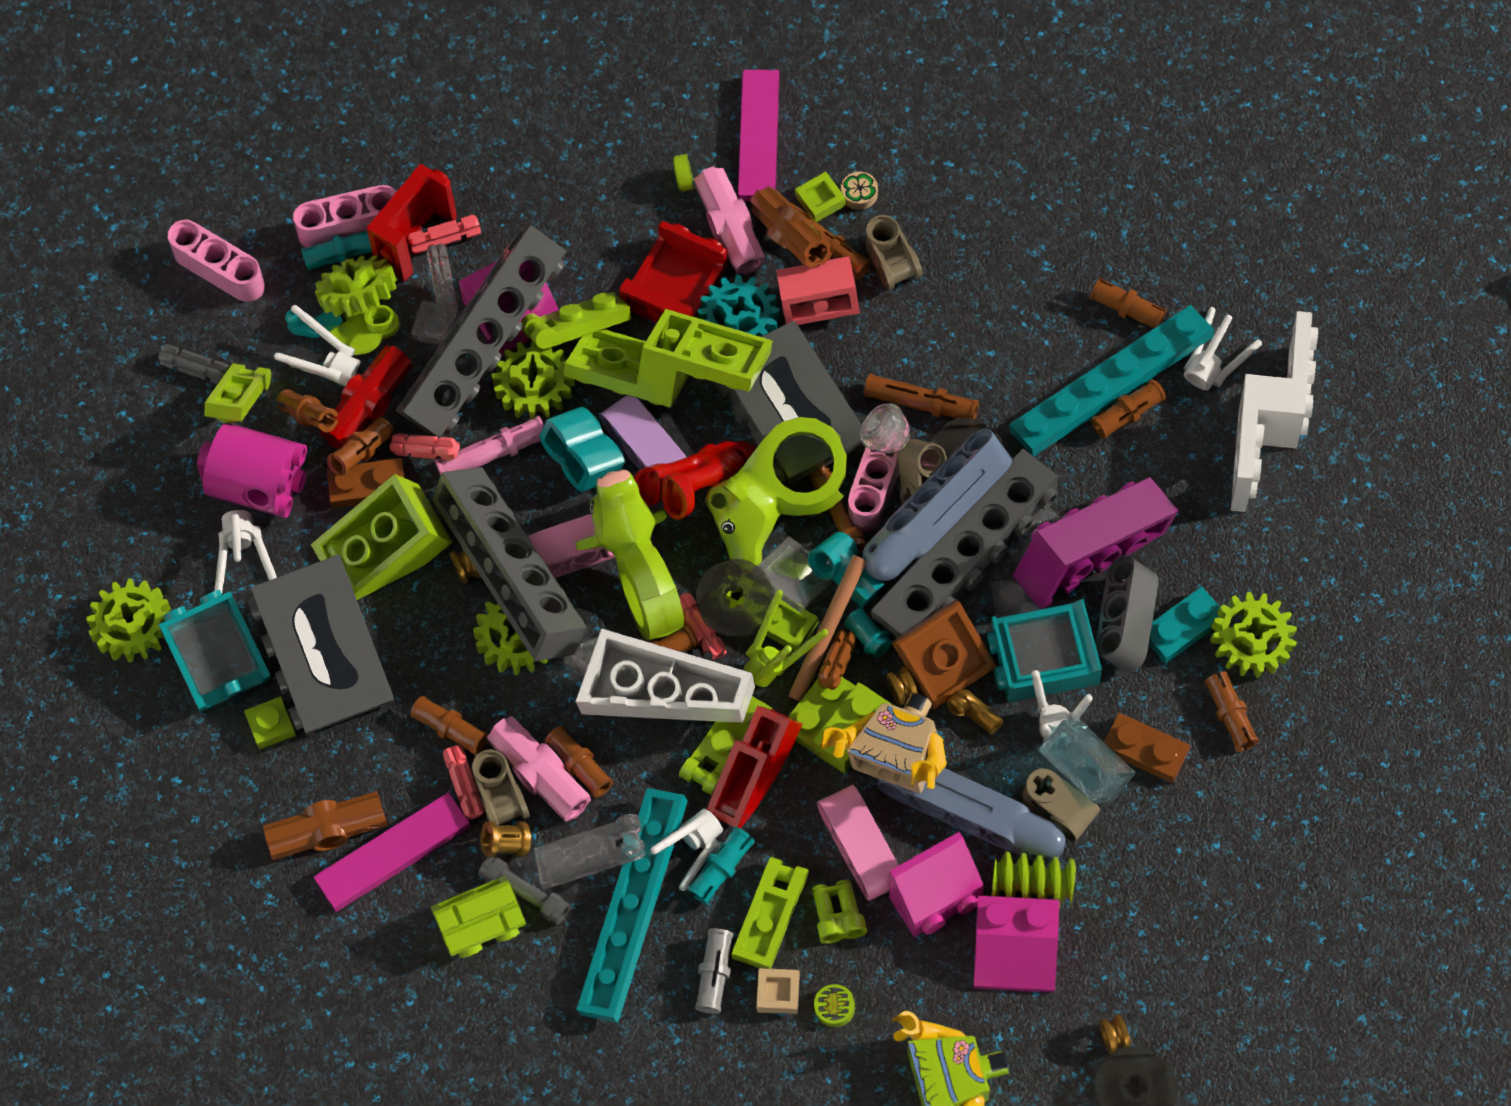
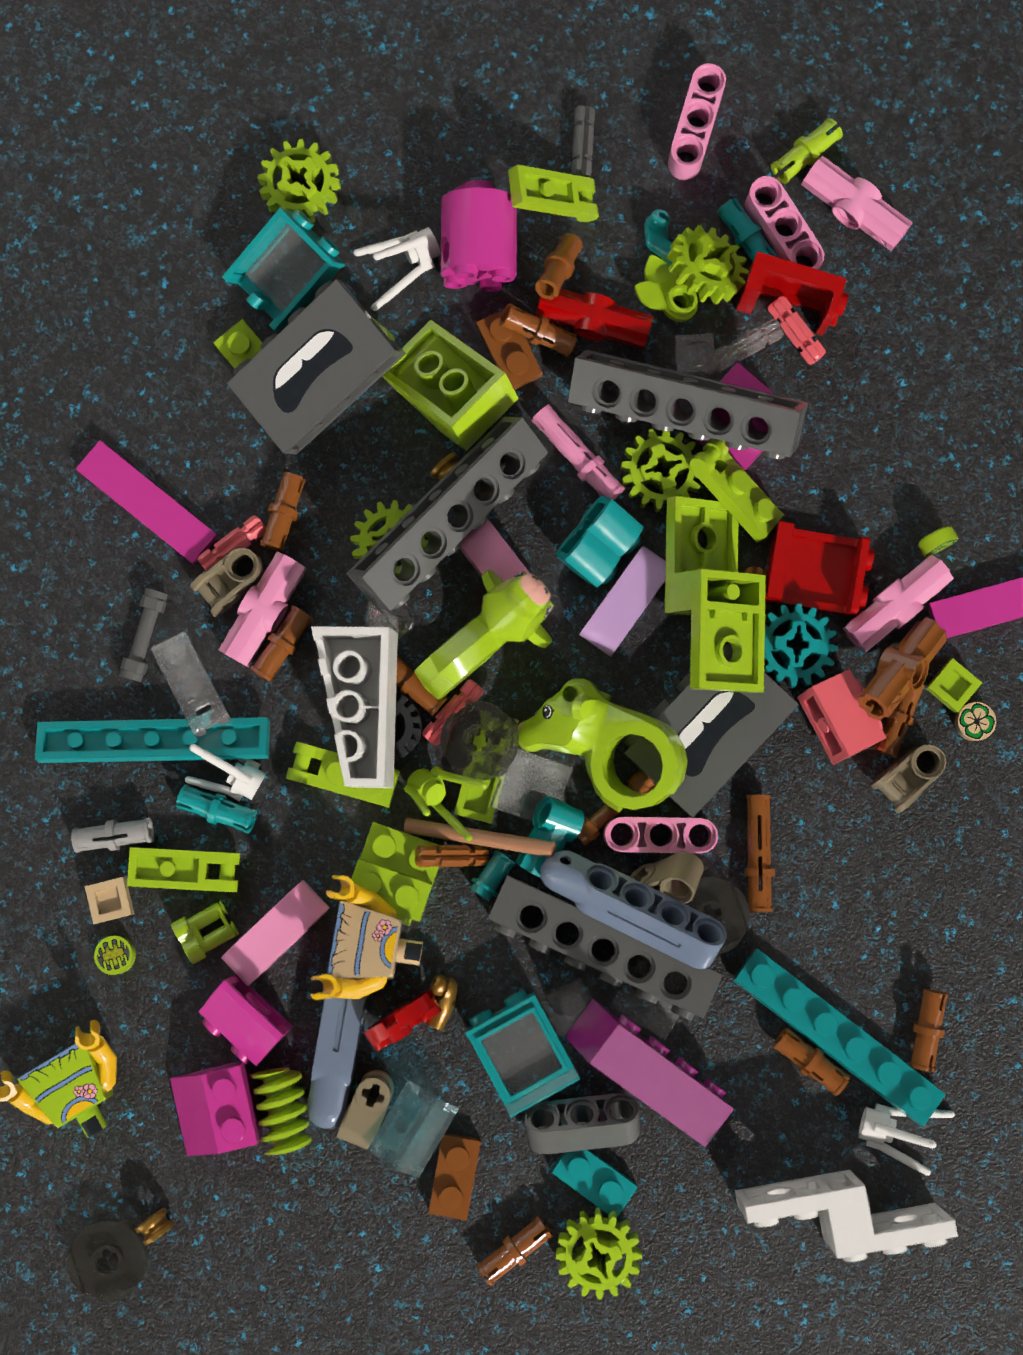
camera: 70 degrees right, 20 degrees up
(280, 178) = (807, 150): none -> lime pin
(324, 825) = (150, 433): dark orange piece -> none
(337, 367) = (614, 277): white plant -> none
(346, 151) = (856, 203): none -> bright pink piece
(424, 446) = (557, 390): coral axle -> none
(478, 917) = (97, 603): lime brick -> none
(505, 839) = (181, 602): pearl gold bush -> none
(679, 480) = (615, 673): red piece -> none
(753, 766) = (322, 809): red slope -> none
(885, 429) = (696, 833): clear cone -> none
(901, 685) = (445, 925): pearl gold bush -> none
(944, 654) = (486, 957): dark orange tile -> none
(980, 736) = (402, 1020): none -> red plate
(1053, 715) = (451, 1084): white plant -> none

